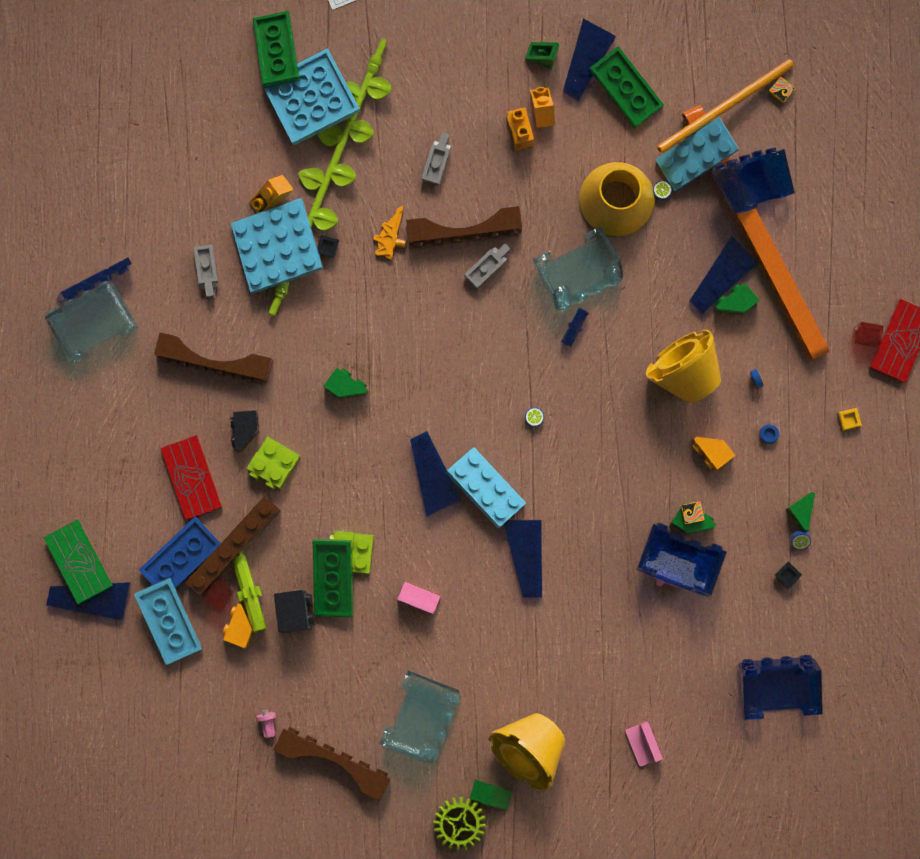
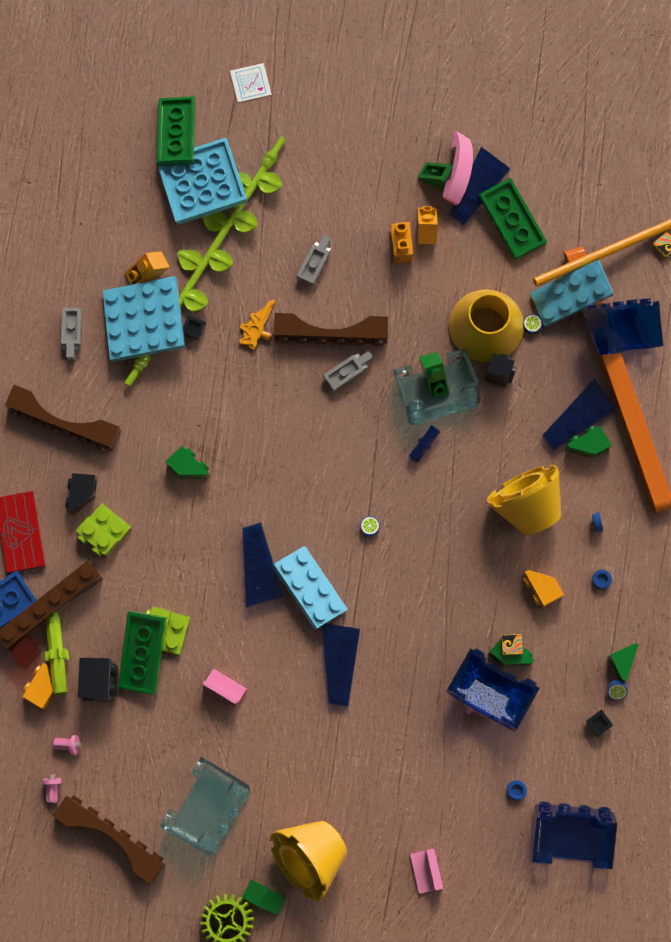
camera: 10 degrees right, 5 degrees down
(275, 678) = (72, 745): none -> bright pink piece
(568, 44) = (461, 171): none -> bright pink slope
(574, 257) = (434, 375): none -> green slope
(639, 242) = (500, 370): none -> black brick
(718, 652) = (516, 790): none -> blue tile

